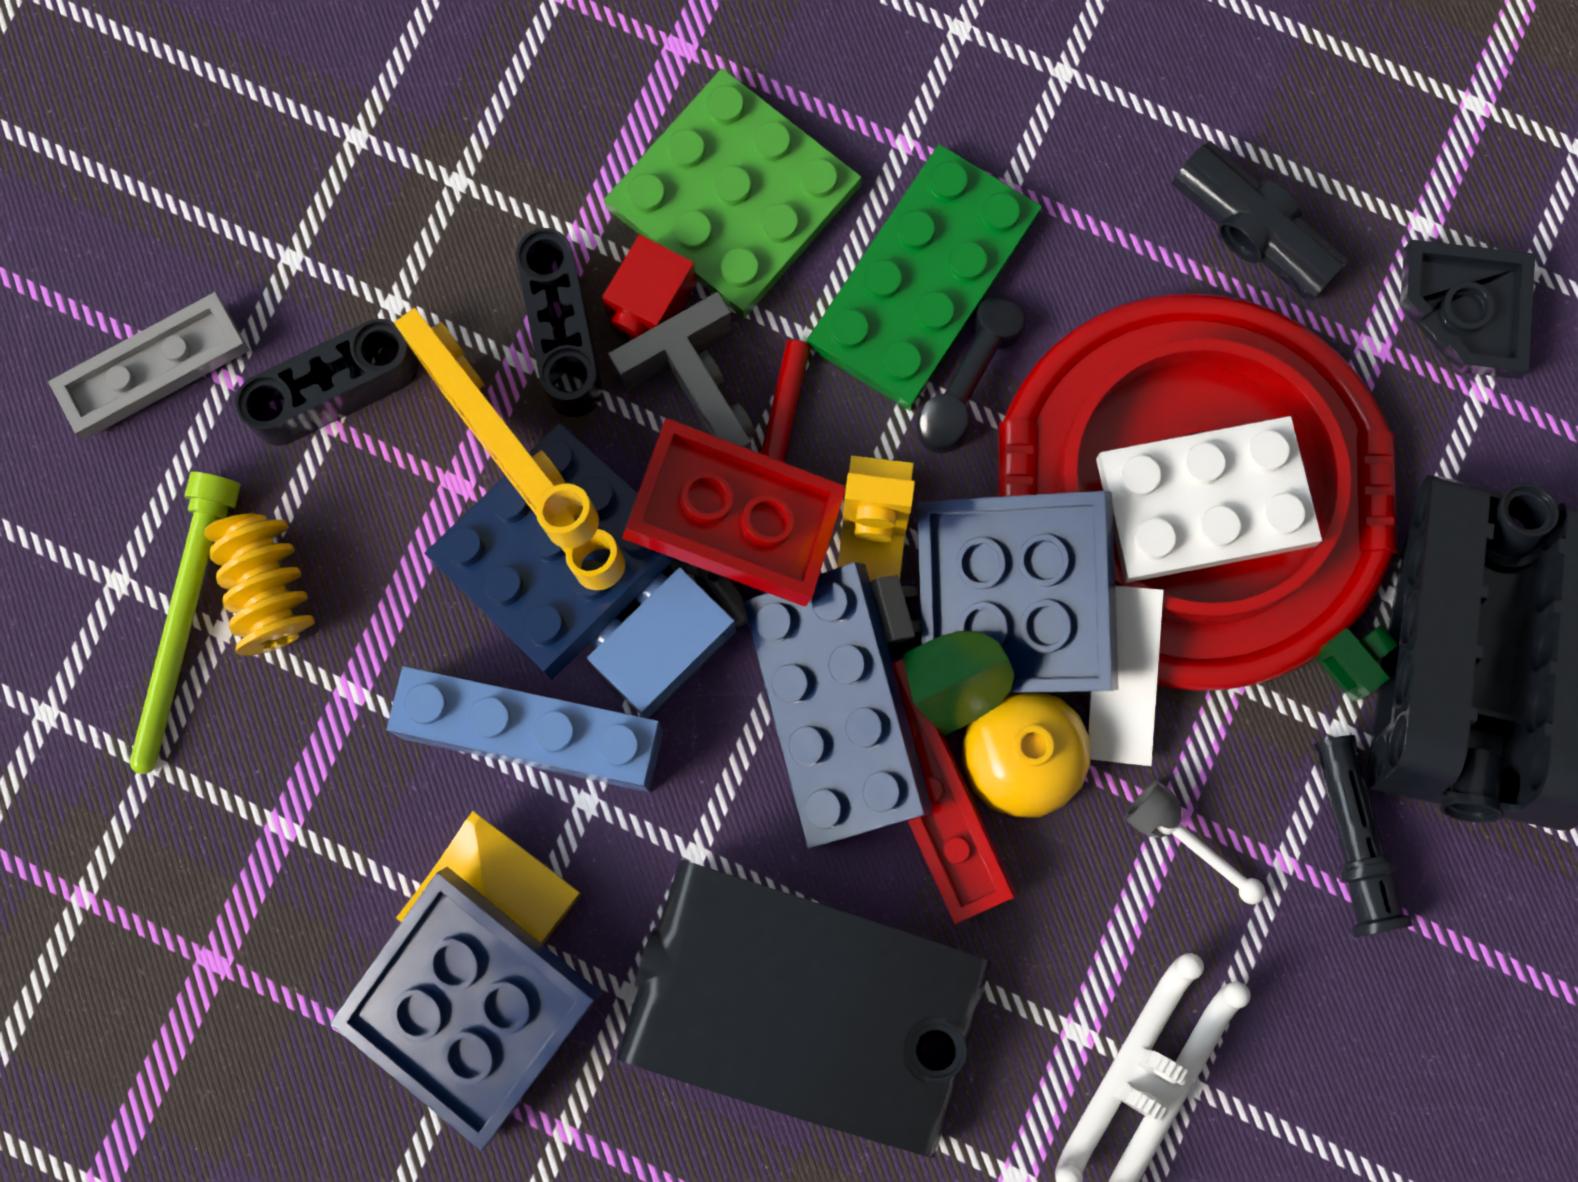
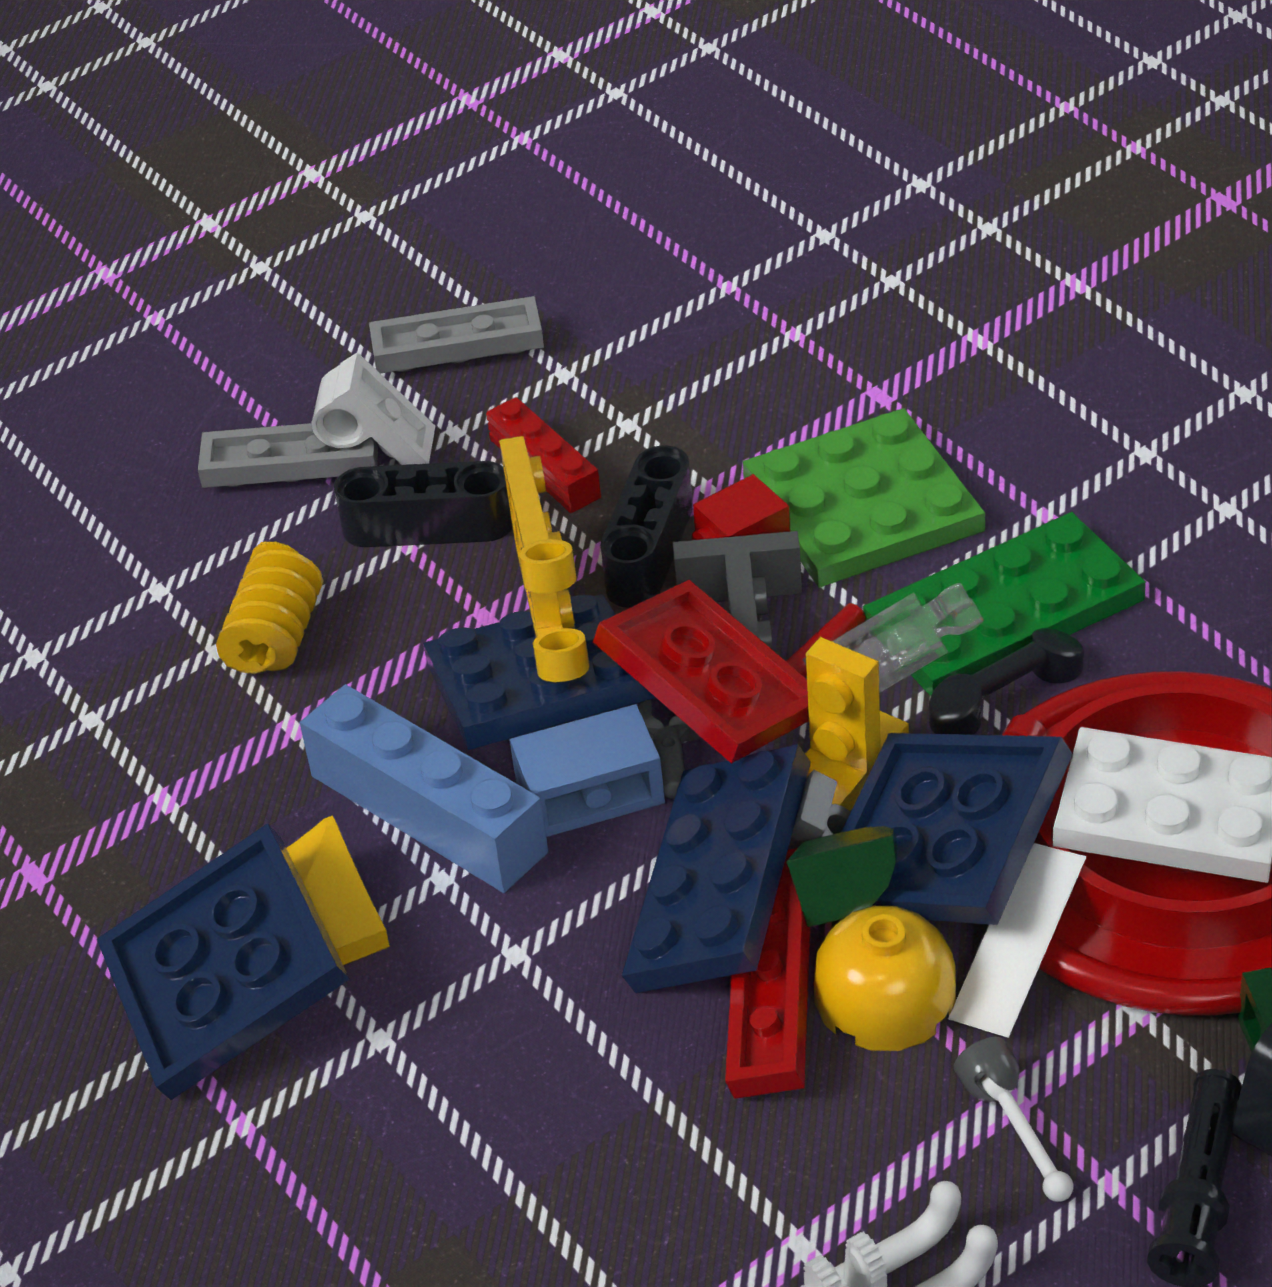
camera: 30 degrees right, 35 degrees down
(207, 297) = (362, 404): none -> white plate
(209, 501) = (178, 629): lime piece -> none
(226, 137) = (456, 335): none -> light grey plate
(403, 263) = (566, 472): none -> red piece
(801, 1009) = (531, 1078): black panel -> none
(862, 397) = (910, 634): none -> clear plate

